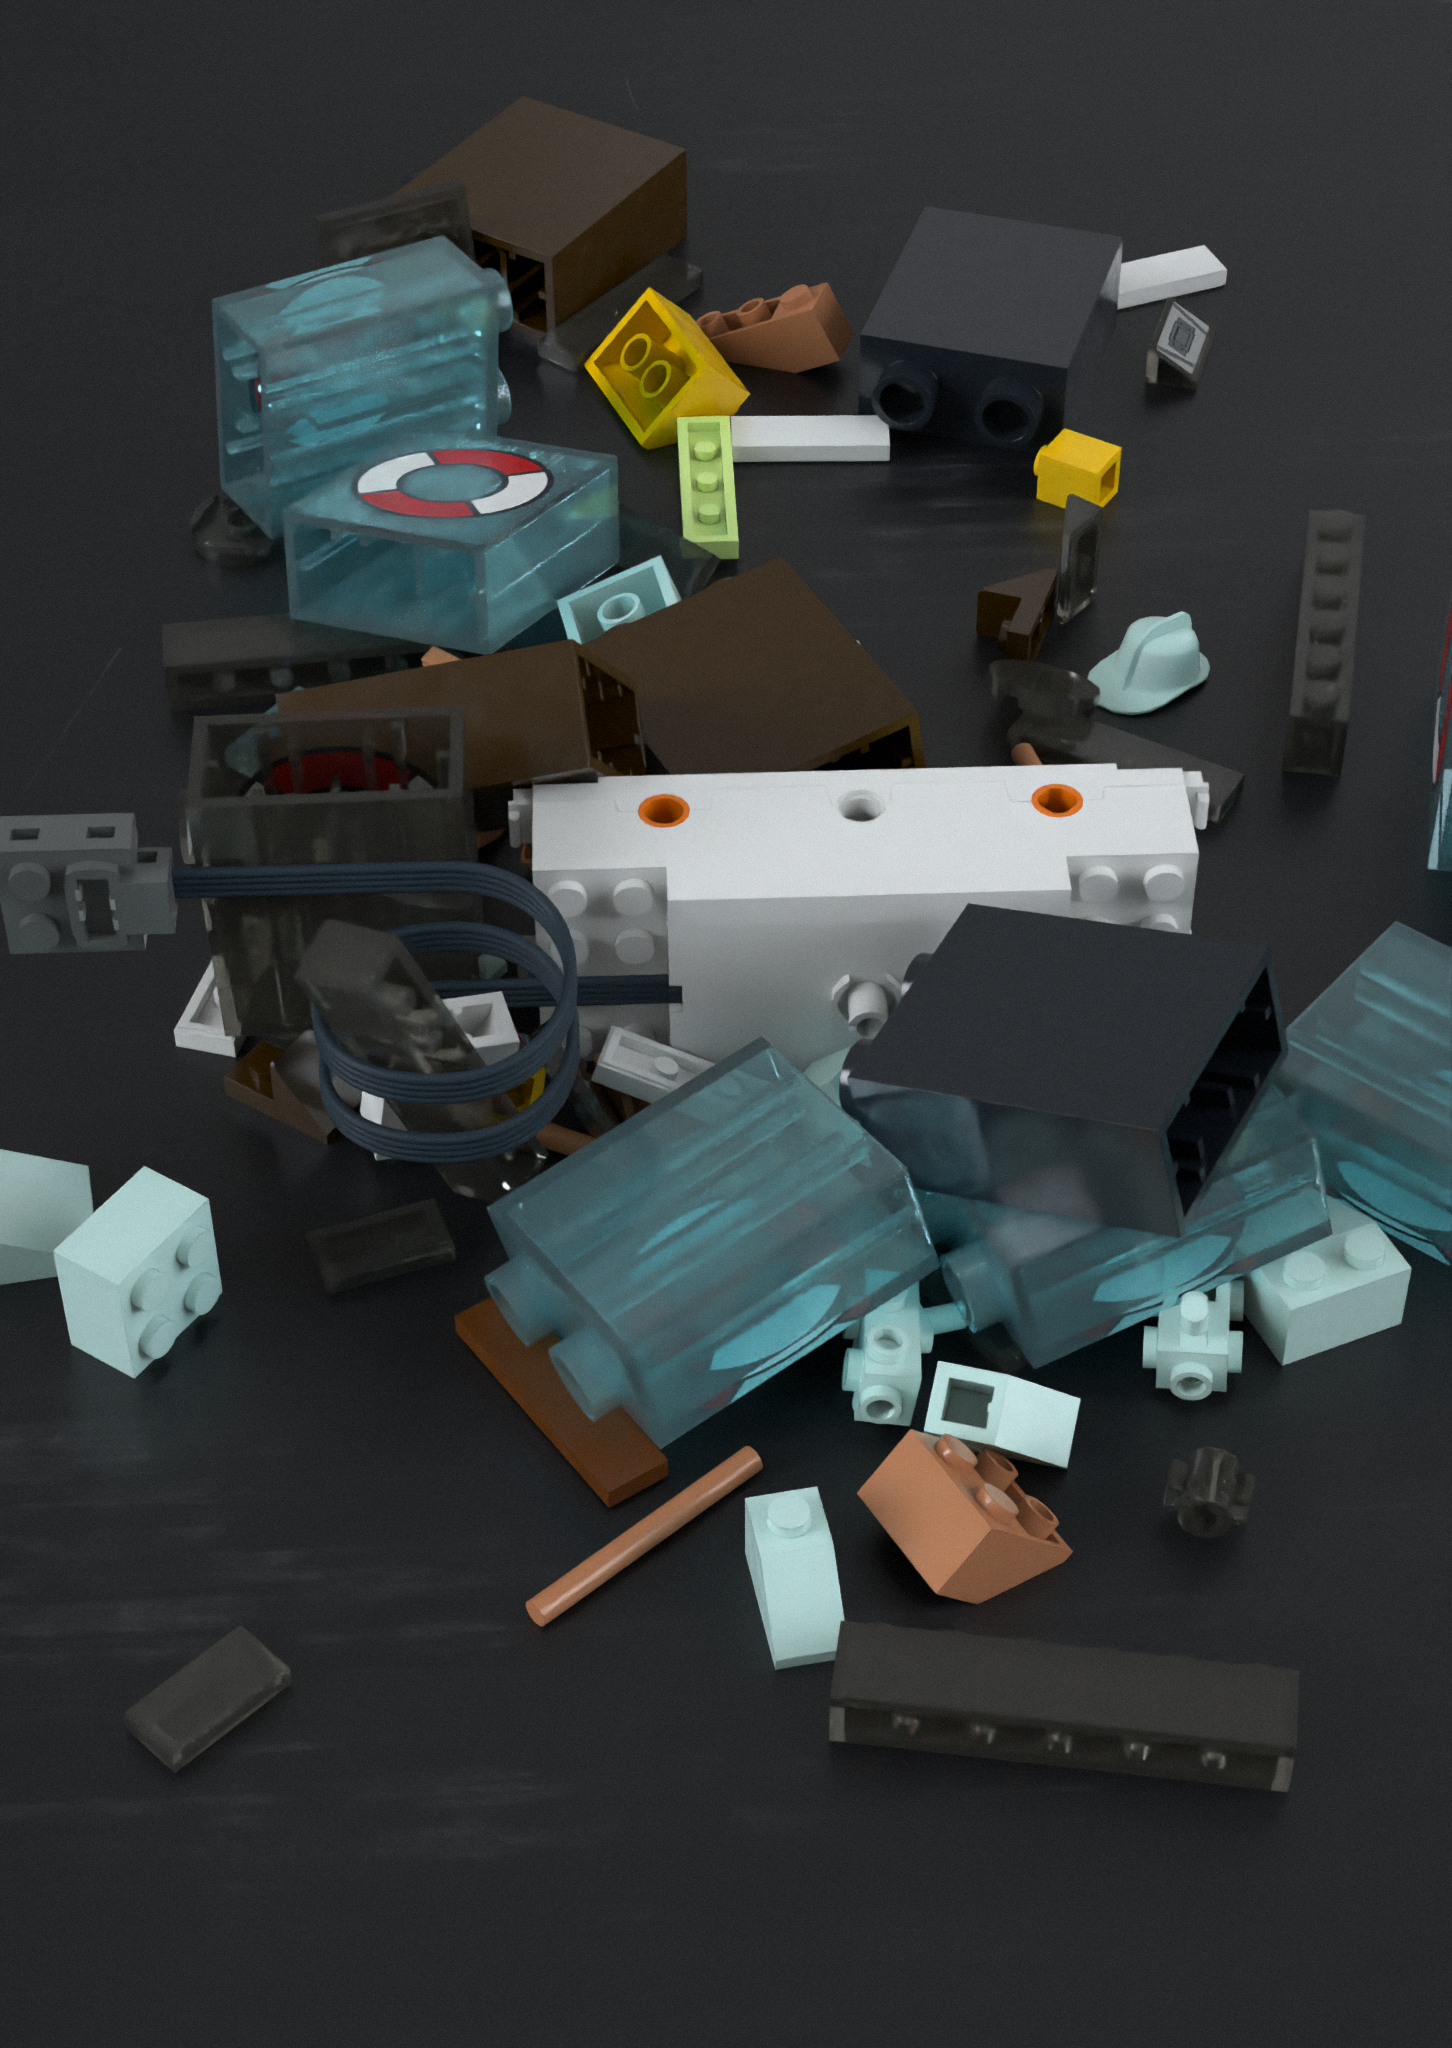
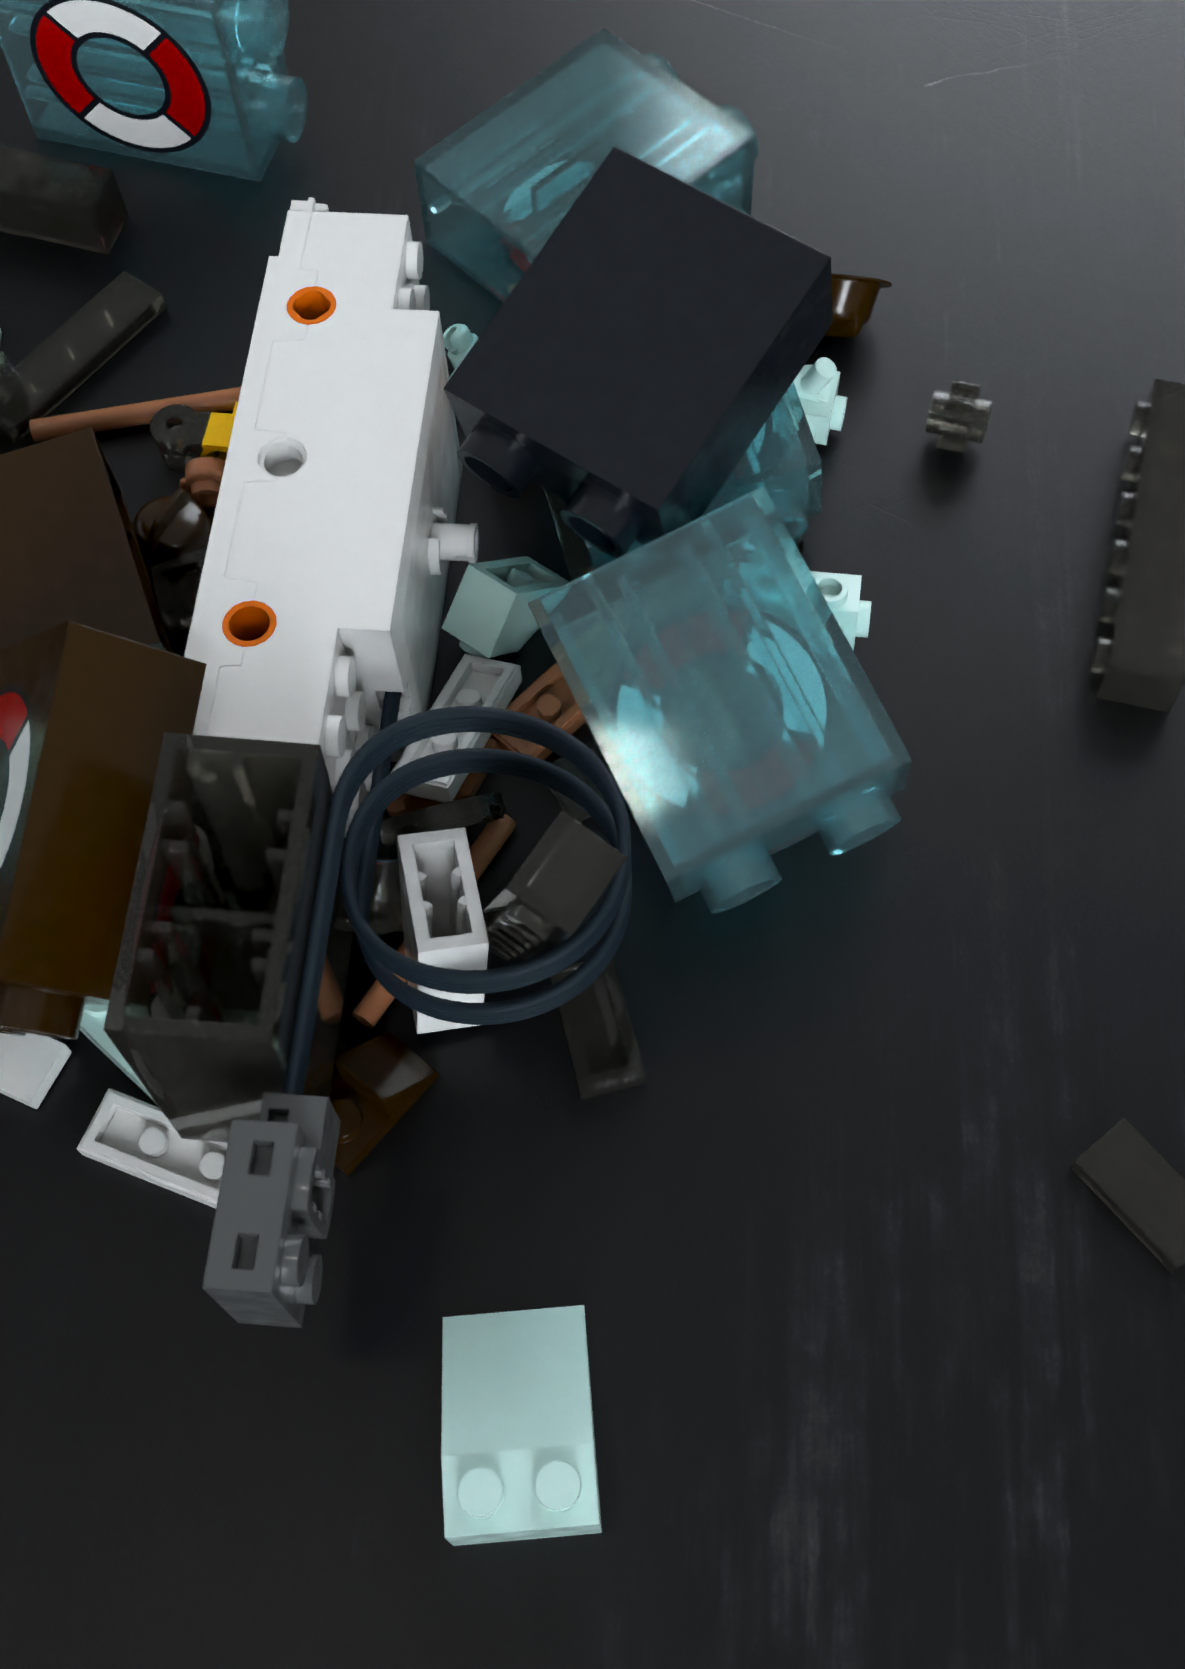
camera: 80 degrees left, 20 degrees up
(139, 1271) = (658, 1236): light aqua brick -> none
(607, 1453) = (807, 883): reddish brown tile -> none
(643, 1536) = (980, 836): nougat bar -> none
(794, 1575) = (1030, 706): light aqua slope -> none
(962, 1517) = (978, 580): nougat slope -> none
(1002, 1414) = (879, 545): light aqua slope -> none
(1382, 1356) = (853, 302): none -> dark brown piece

